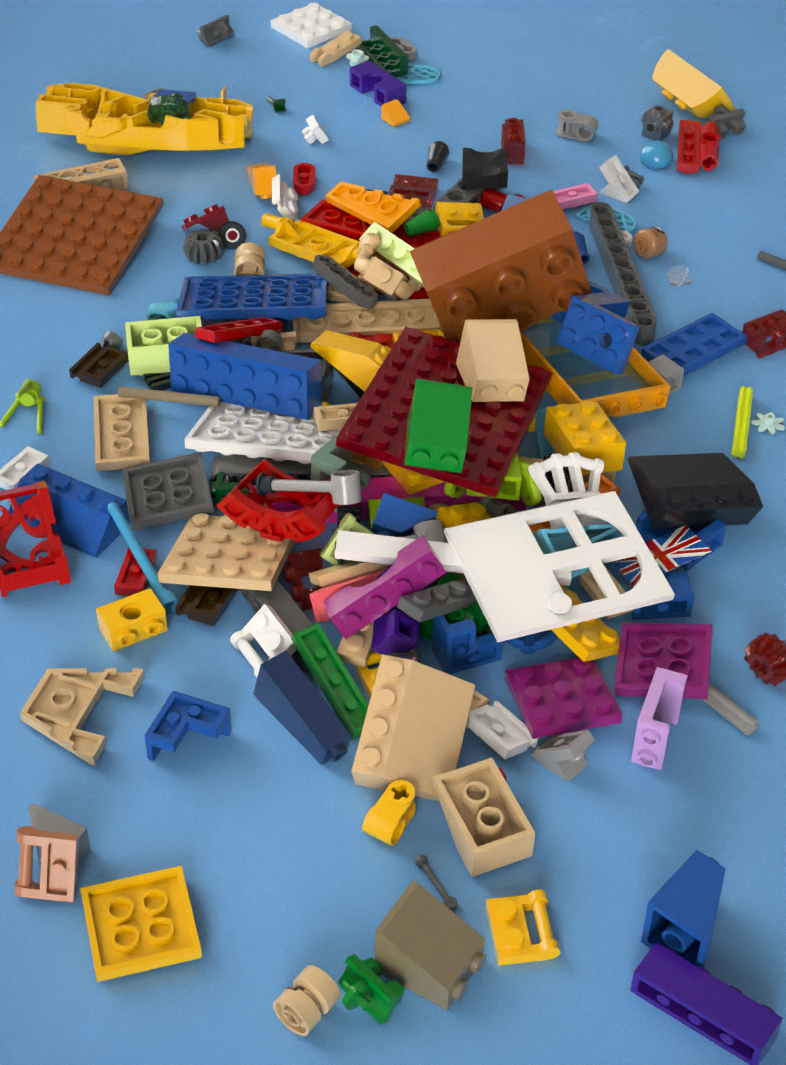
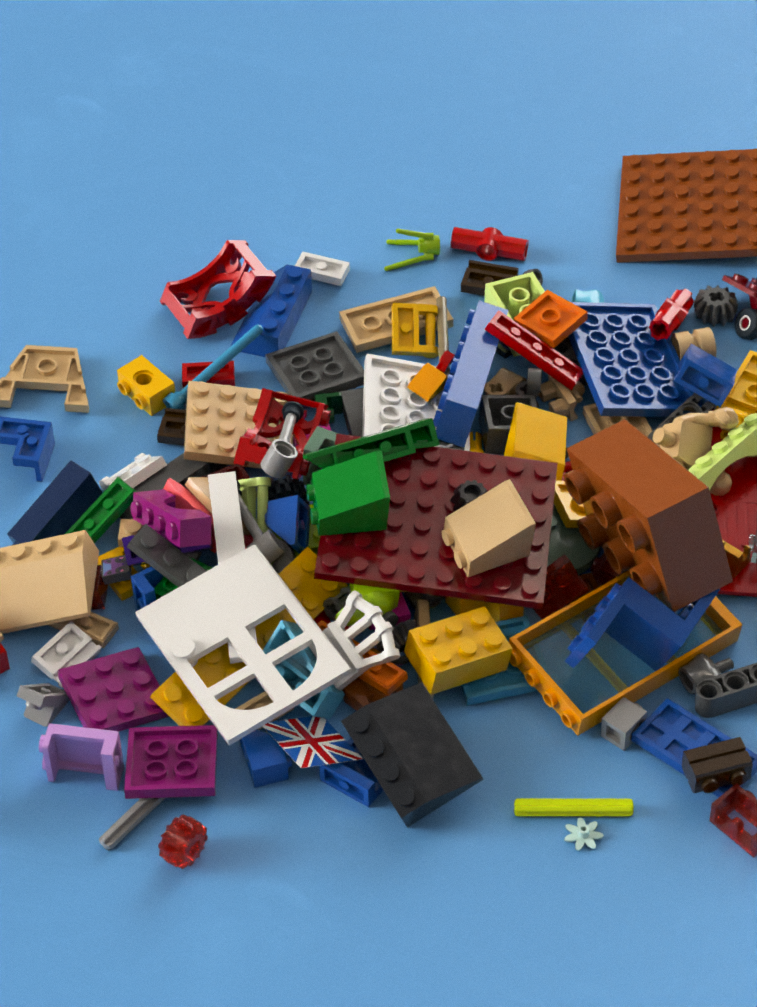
camera: 80 degrees right, 5 degrees up
(51, 355) = (489, 243): none -> red piece
(151, 415) = (406, 329): none -> yellow plate
(203, 310) = (551, 318): none -> orange plate
(209, 264) = (671, 314): none -> red piece
(225, 392) = (445, 361): none -> red tile
(238, 407) = (428, 382): none -> light orange slope
(313, 249) = (705, 375): none -> blue panel
(369, 409) = (393, 443): none -> green wedge
(442, 370) = (466, 493): none -> black piece
(727, 327) = (717, 765): none -> dark brown brick

